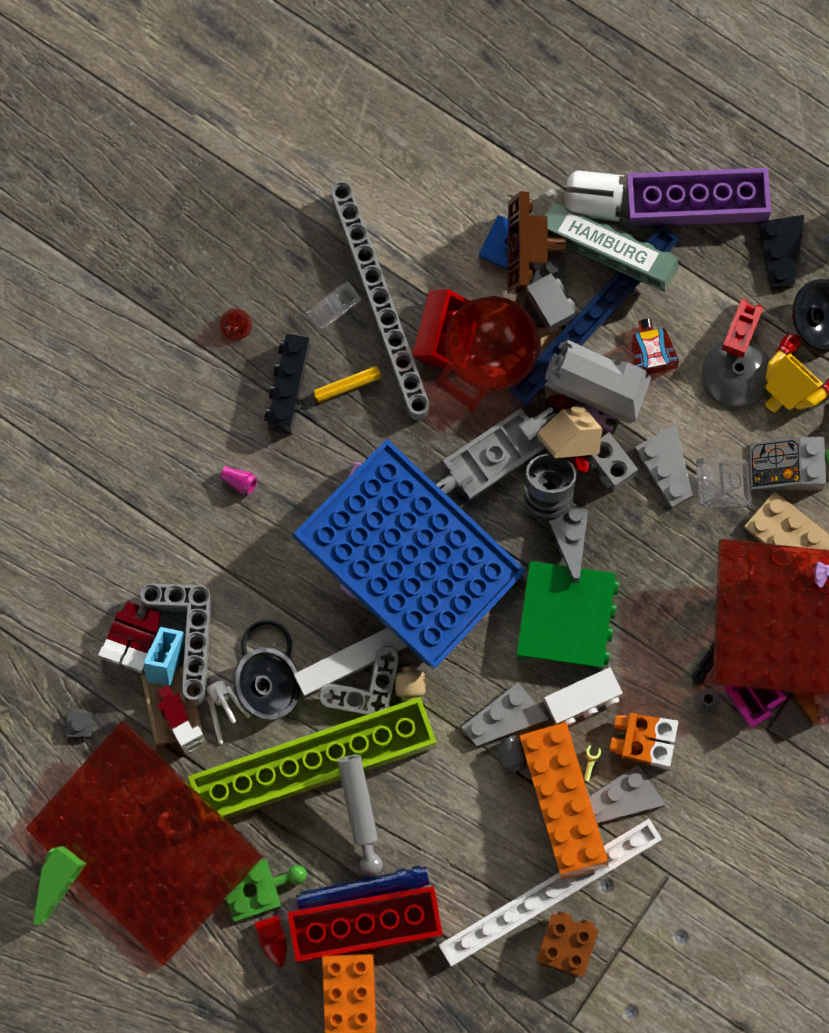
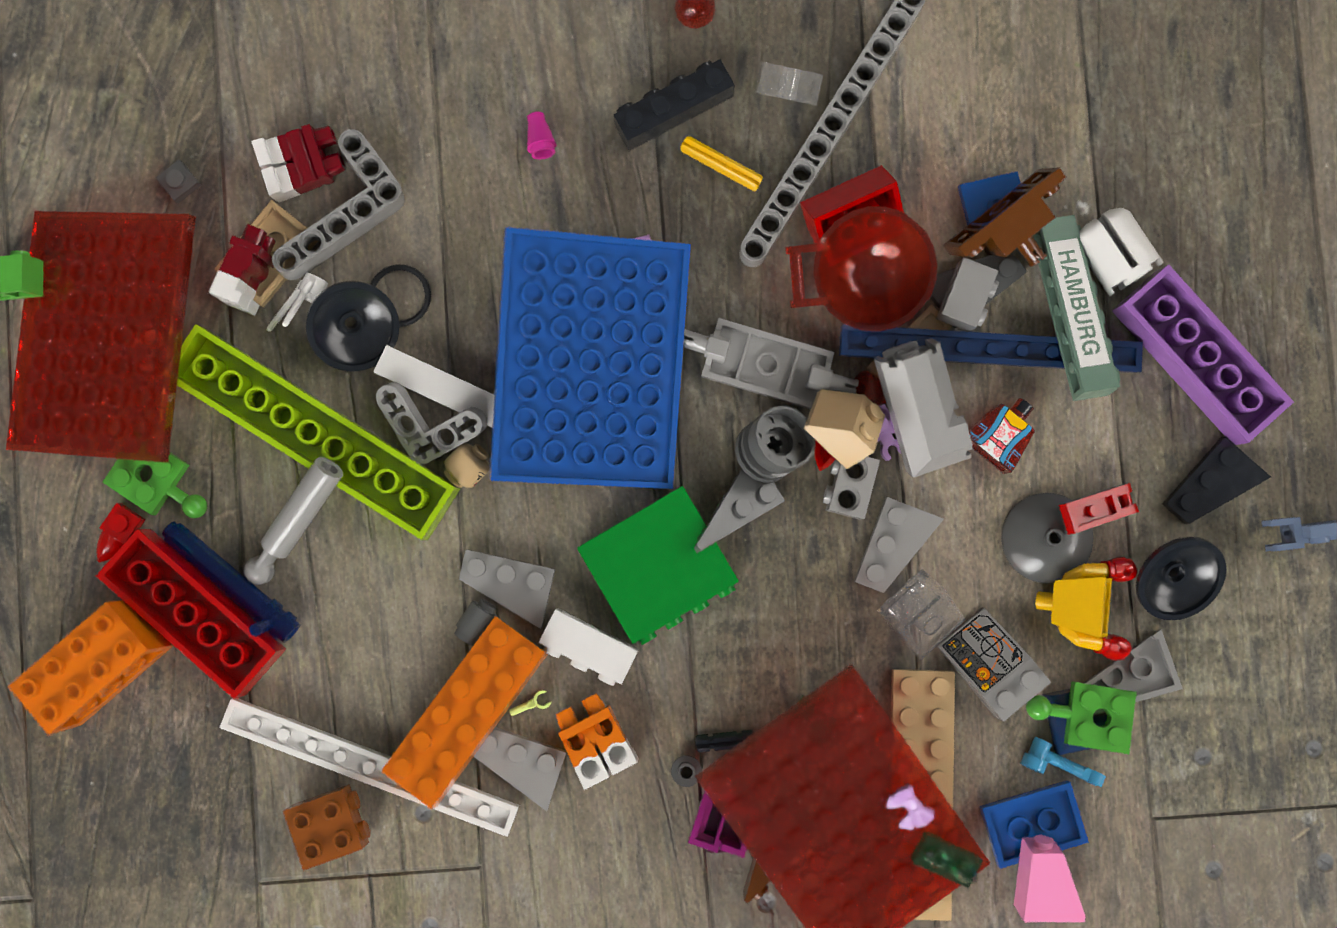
camera: 50 degrees right, 10 degrees up
(164, 656) = (298, 205): medium azure brick -> none

